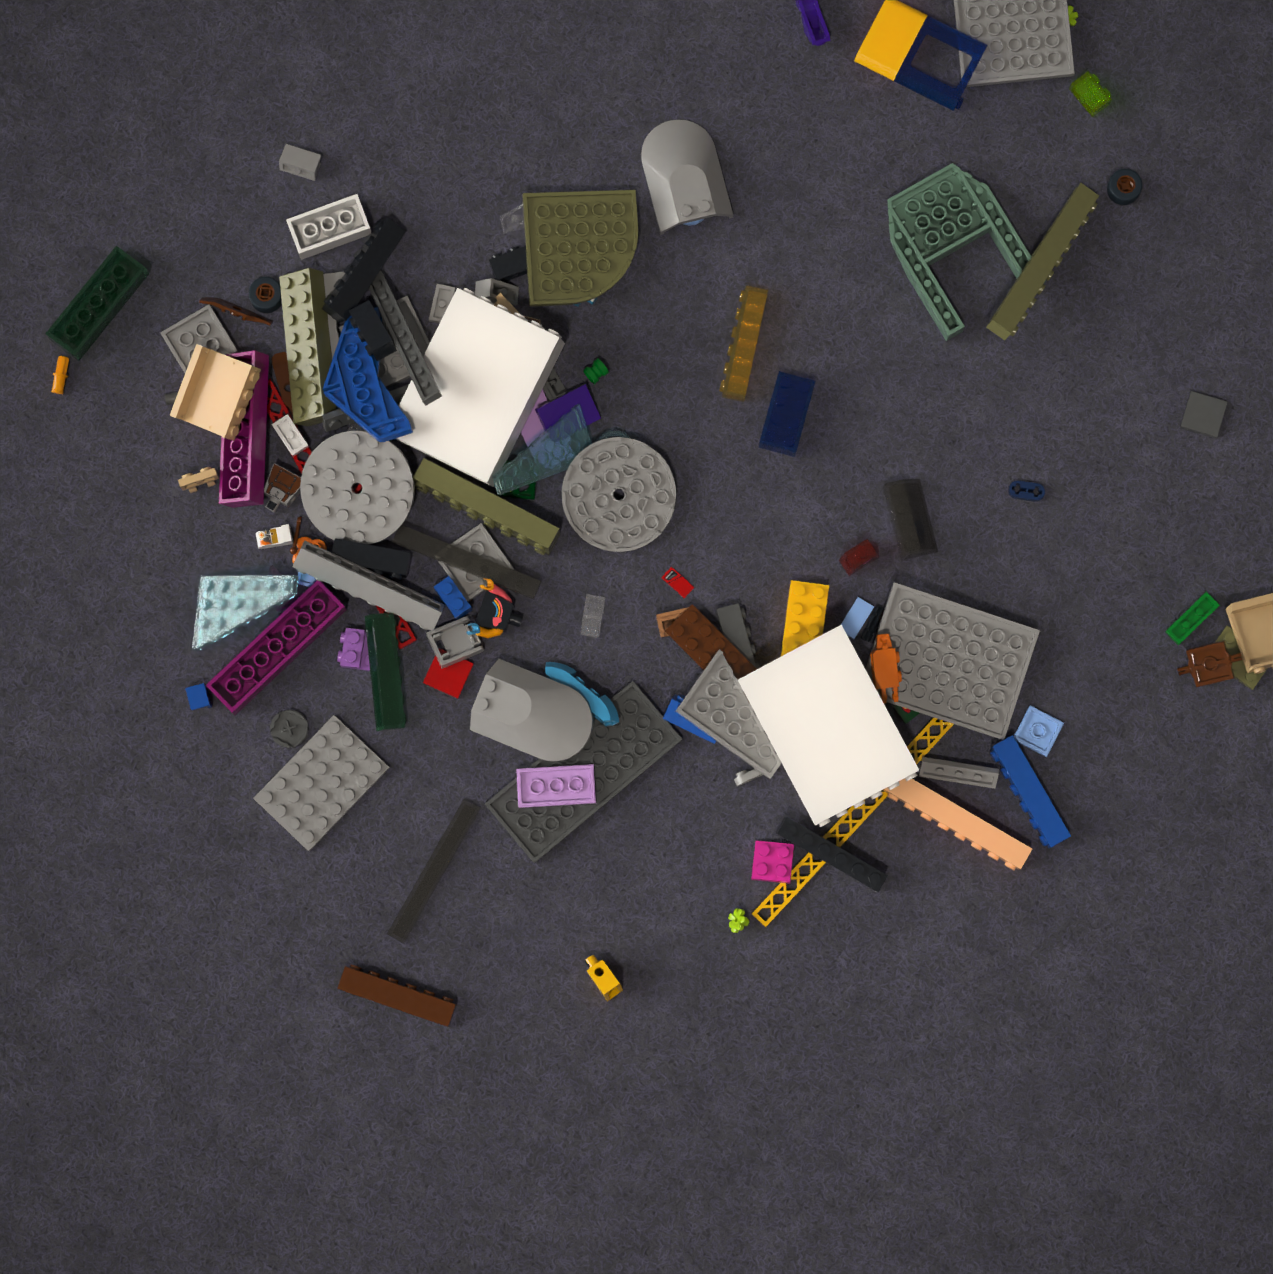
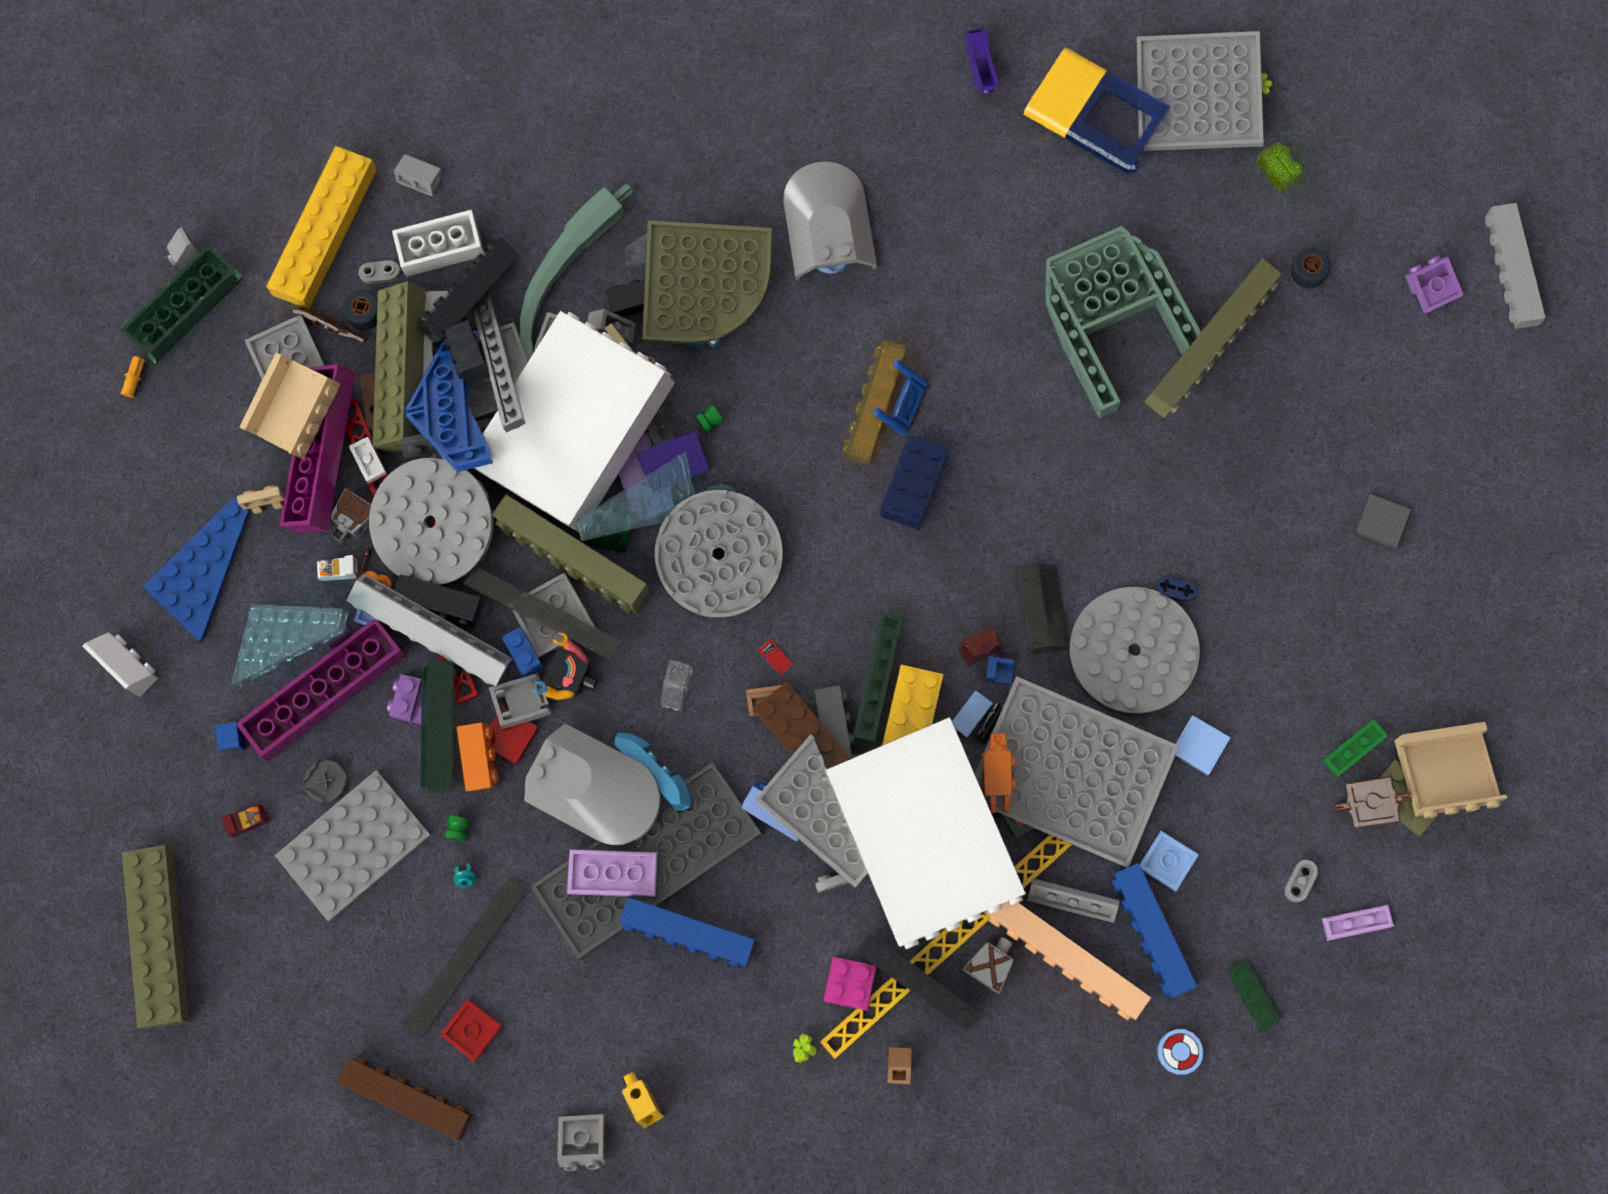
camera: 15 degrees right, 5 degrees down
(90, 252) = (181, 249): none -> light grey slope
(92, 639) = (122, 662): none -> white slope
(146, 551) = (195, 575): none -> blue wing
(157, 879) = (155, 937): none -> olive brick
(217, 219) = (322, 227): none -> yellow brick
(223, 769) = (245, 820): none -> dark red leg
(275, 258) = (378, 272): none -> light grey plate
(413, 759) = (457, 828): none -> green wheel
(424, 694) = (477, 756): none -> orange brick
(425, 802) = (464, 878): none -> teal plate
(447, 933) = (471, 1030): none -> red tile
(458, 207) = (579, 234): none -> sand green piece
(555, 1017) = (581, 1142): none -> light grey plate
(626, 830) = (686, 931): none -> blue brick
(772, 594) = (878, 679): none -> clear green brick
(773, 340) = (907, 401): none -> blue plate
(822, 927) = (899, 1065): none -> medium nougat brick
(877, 577) = (1000, 670): none -> blue panel
(893, 834) = (991, 965): none -> light grey torso
(1000, 521) = (1127, 681): none -> light grey plate
(1058, 627) = (1200, 745): none -> light blue tile
(1060, 892) = (1180, 1051): none -> tile
(1119, 839) = (1253, 995): none -> dark green plate
(1153, 738) = (1300, 881): none -> light grey plate
(1204, 768) = (1357, 922): none -> lavender tile
(1235, 193) = (1434, 283): none -> medium lavender plate

